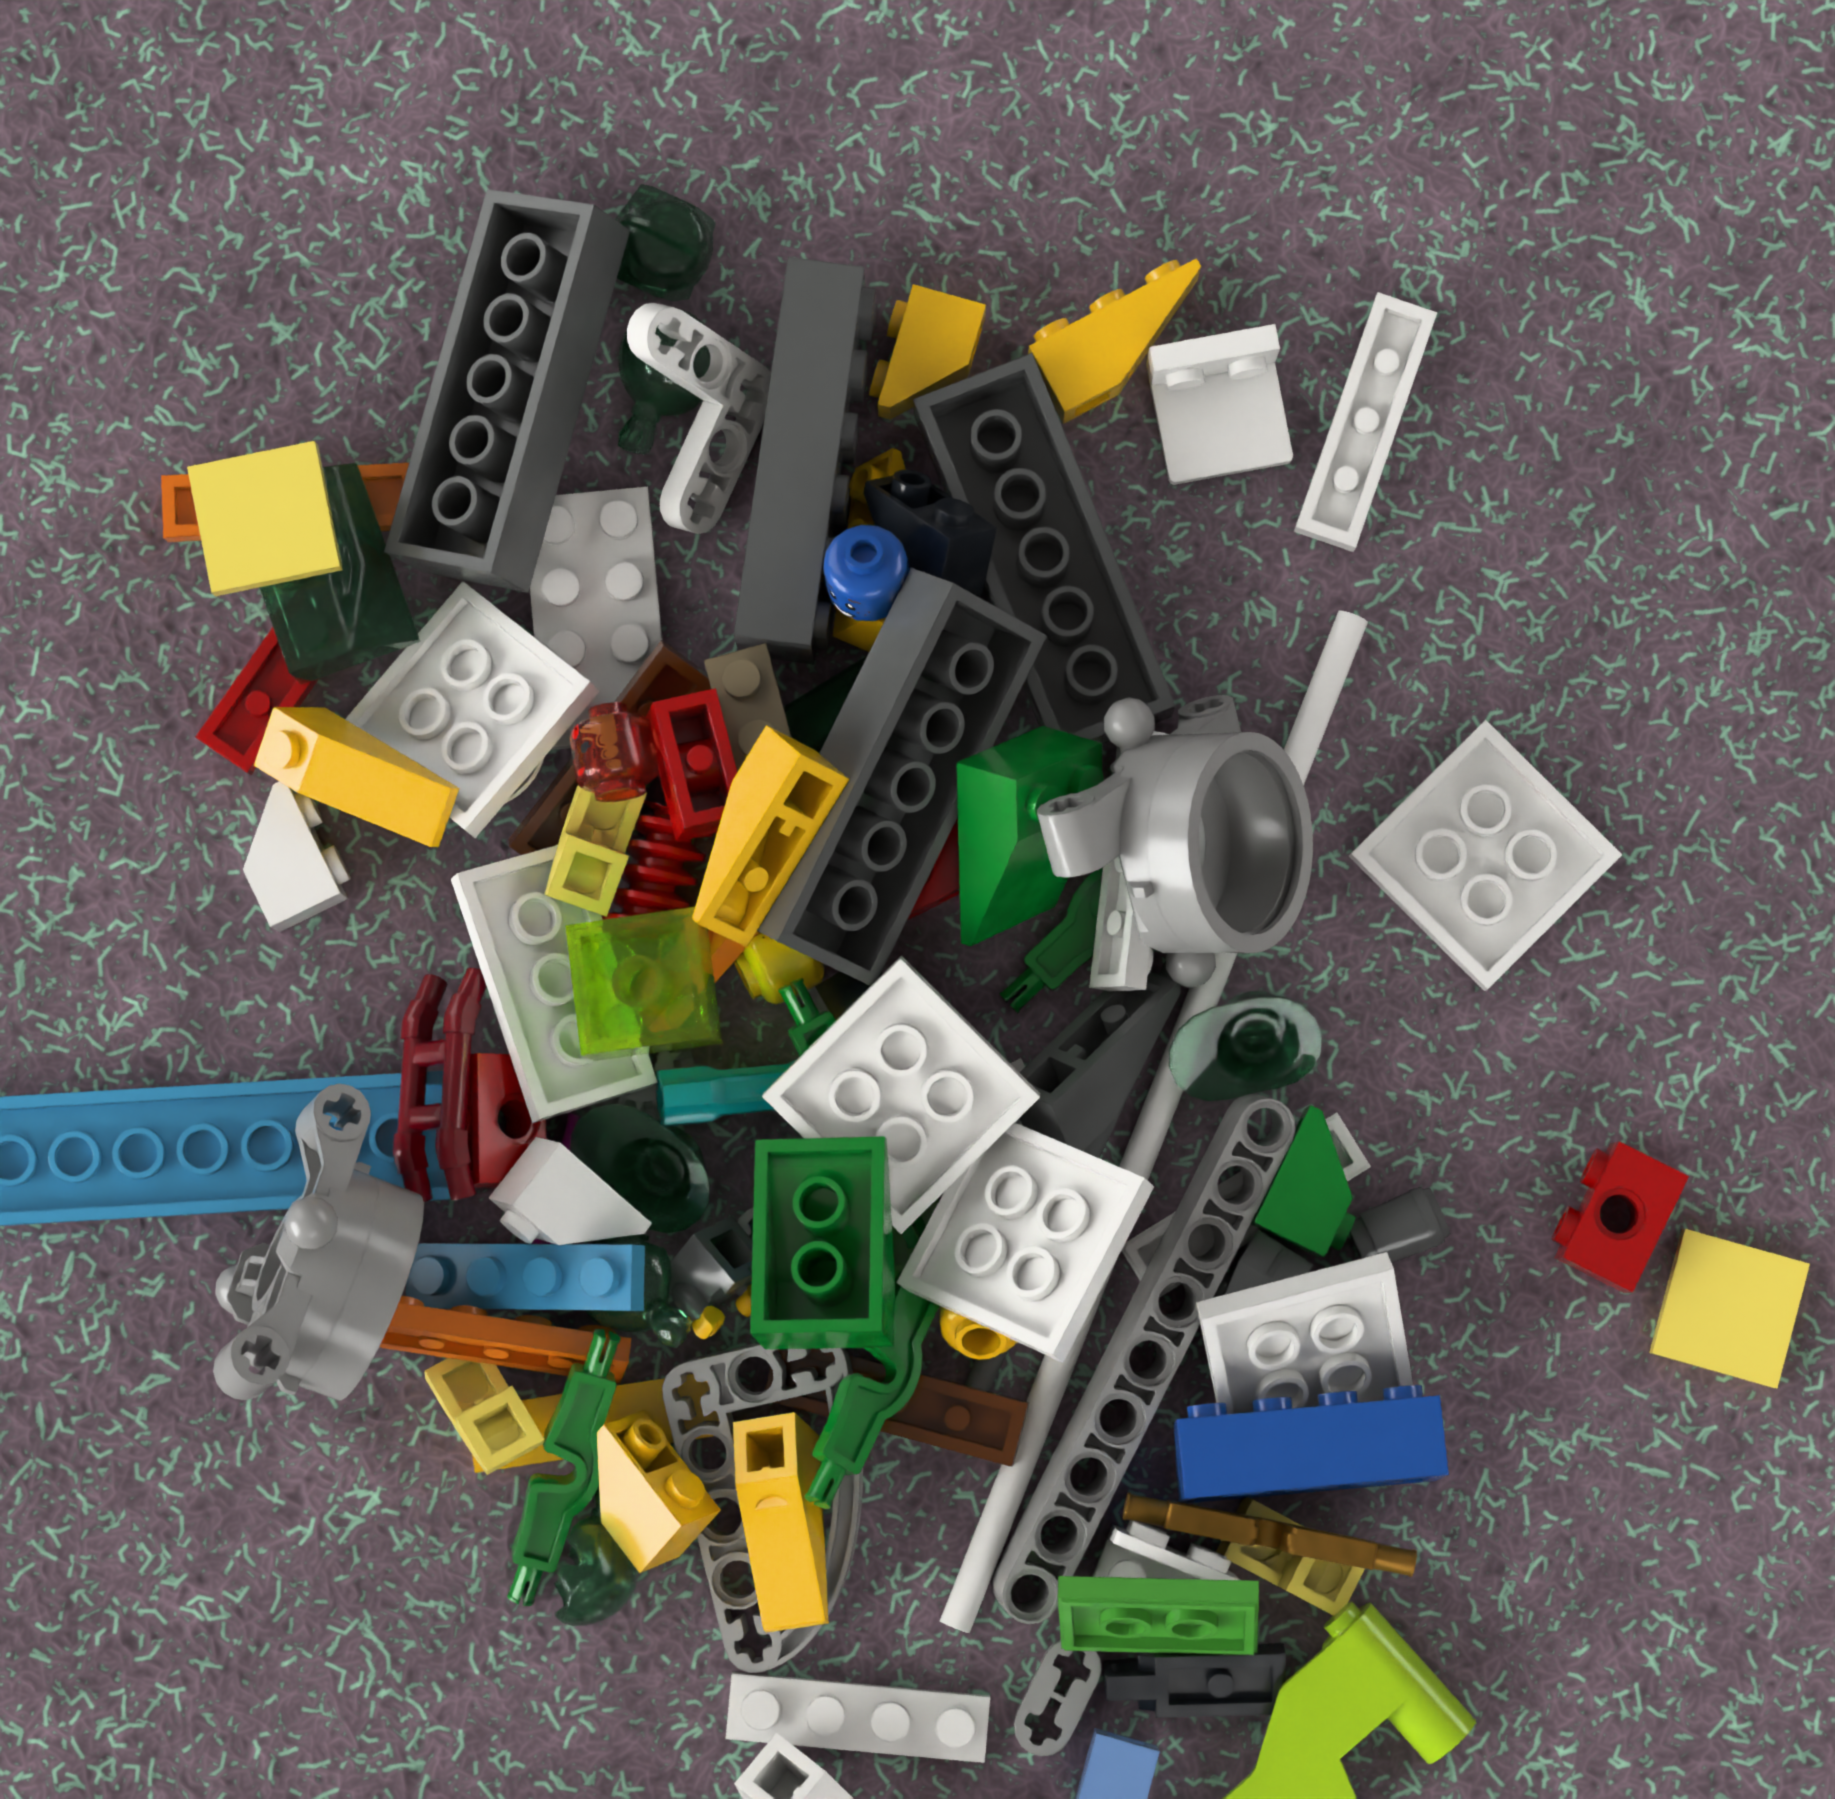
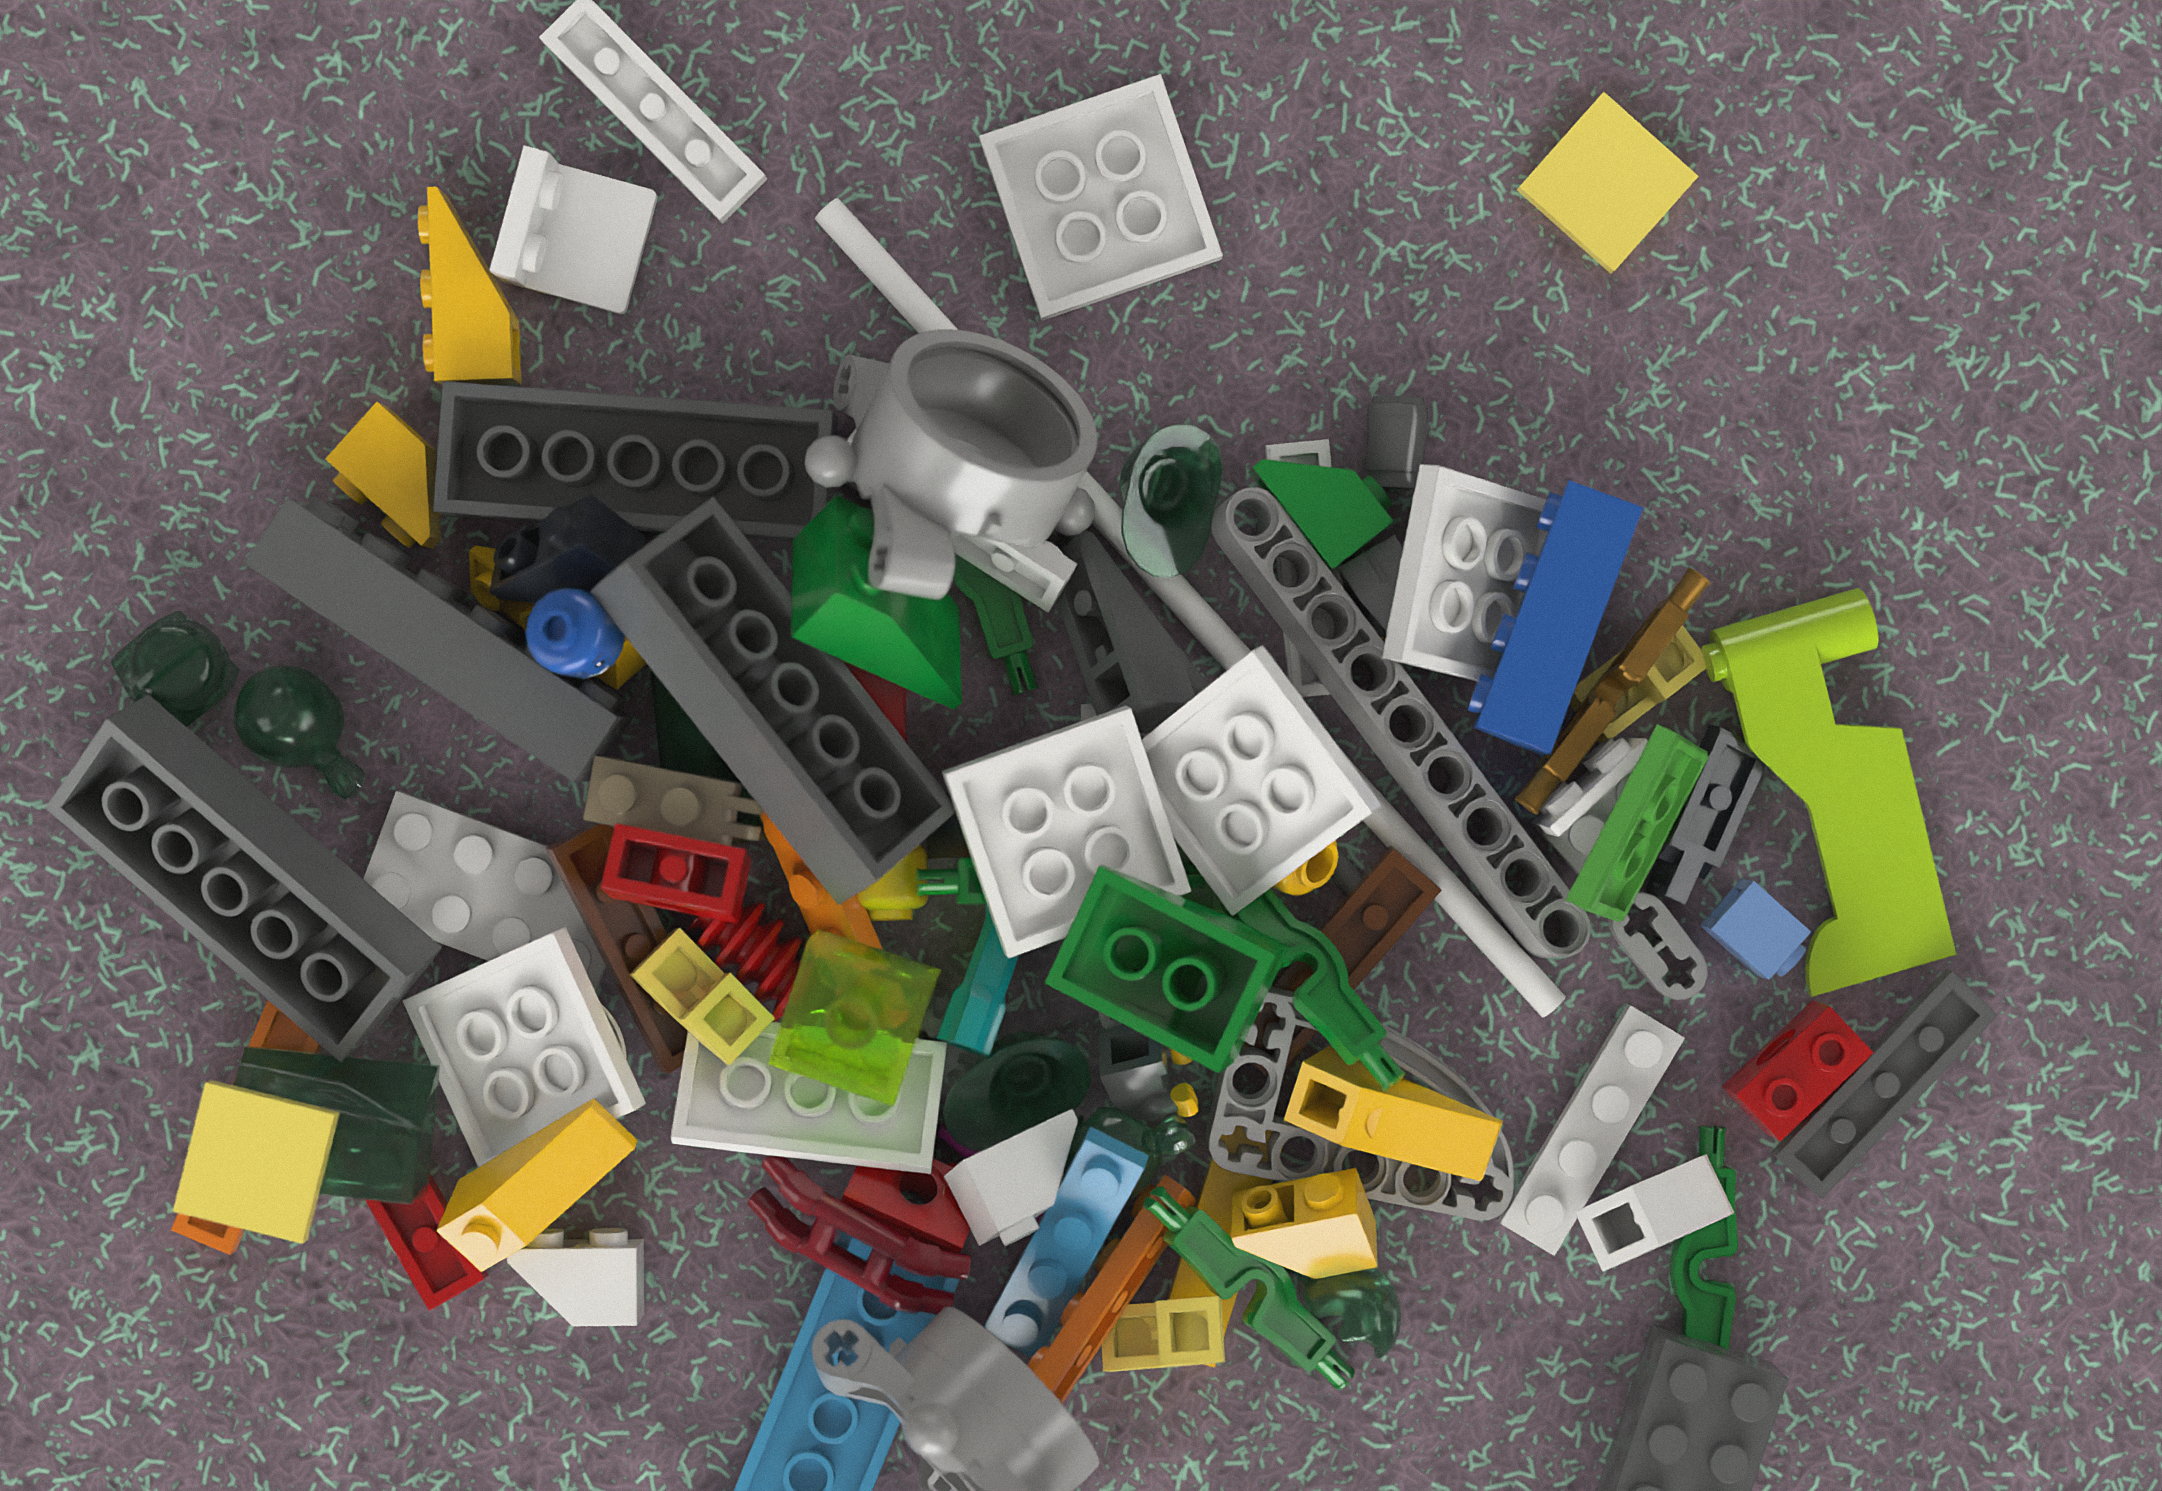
camera: 70 degrees left, 5 degrees up
(614, 753) = (629, 942): clear red head -> none
(720, 396) = (343, 684): white beam -> none
(764, 832) = (770, 843): yellow slope -> none
(1650, 1194) = (1478, 202): red brick -> none

